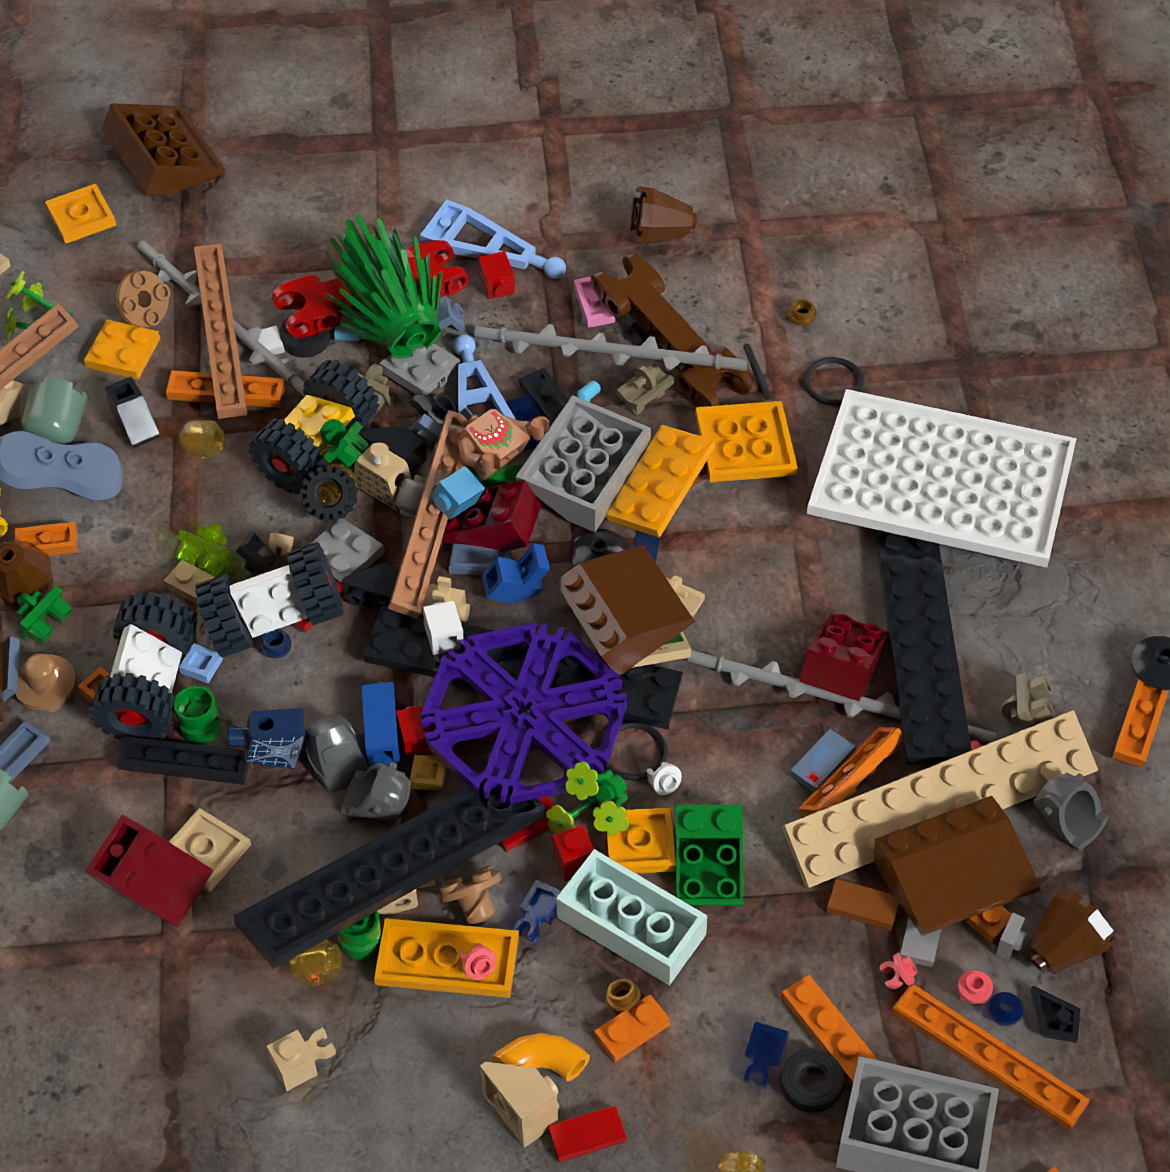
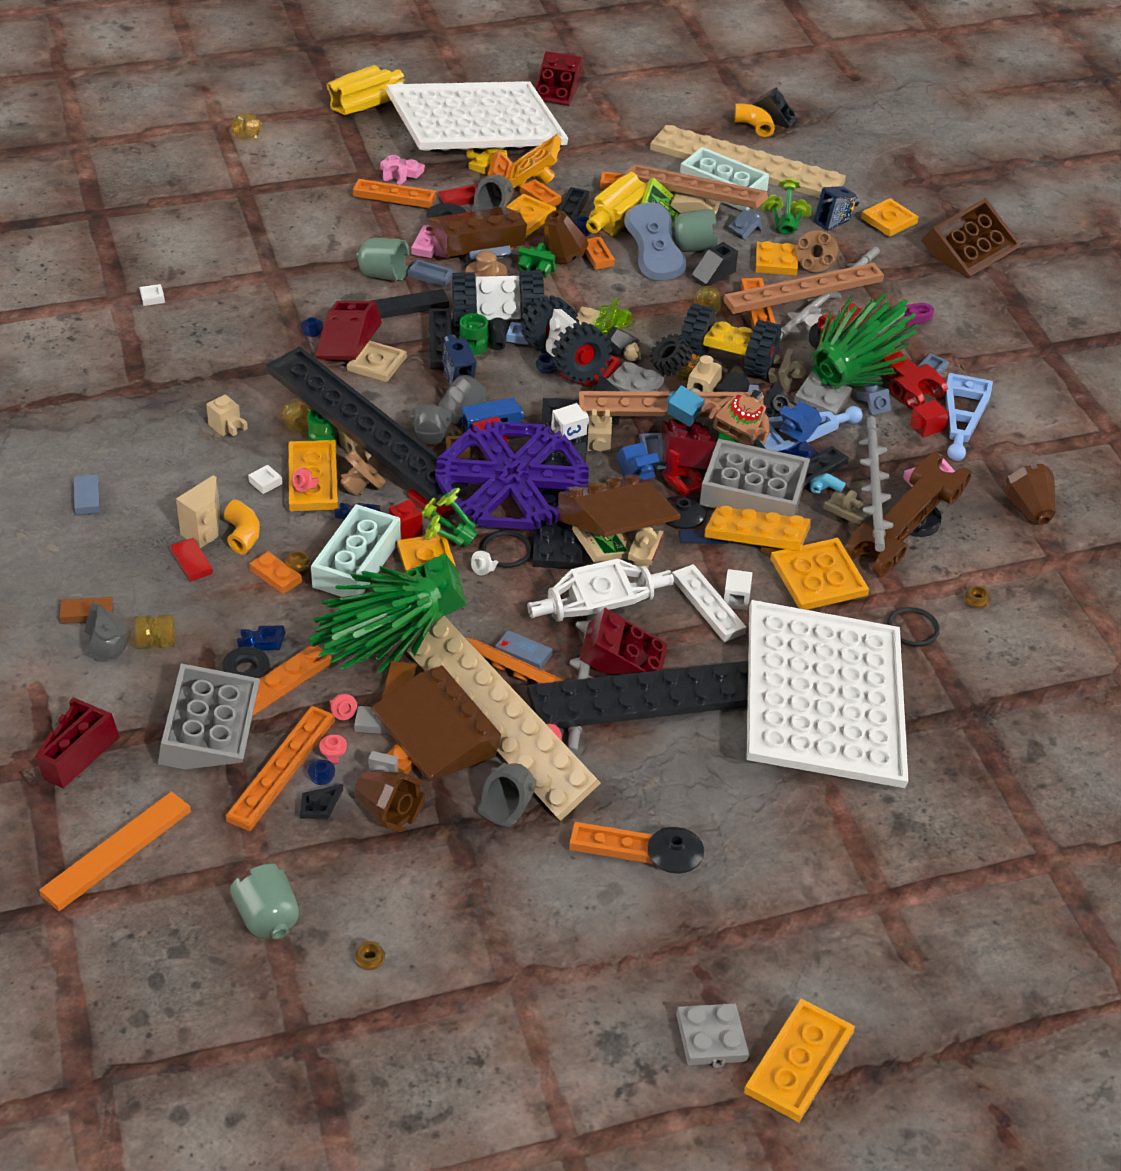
camera: 75 degrees right, 10 degrees down
(45, 367) = (746, 223): none -> sand blue bracket
(48, 250) = (835, 207): none -> dark blue torso
(83, 796) = (412, 303): none -> black tile
(102, 931) = (312, 327): none -> clear blue plate
(189, 679) = (497, 332): none -> black cone
(289, 240) = (923, 311): none -> magenta plate
(345, 444) = (712, 344): green hips -> none
(442, 1020) = (265, 479): none -> white plate
(493, 391) = (800, 421): none -> blue brick
(541, 535) = (673, 469): none -> red piece
(754, 658) = (599, 587): none -> white plate
(757, 371) = (873, 554): black tyre -> none
(759, 523) = (738, 589): none -> white brick
(774, 557) = (709, 603): none -> white plate
(786, 864) = (374, 619): none -> green plant
(1030, 702) = (607, 761): dark tan hips -> none

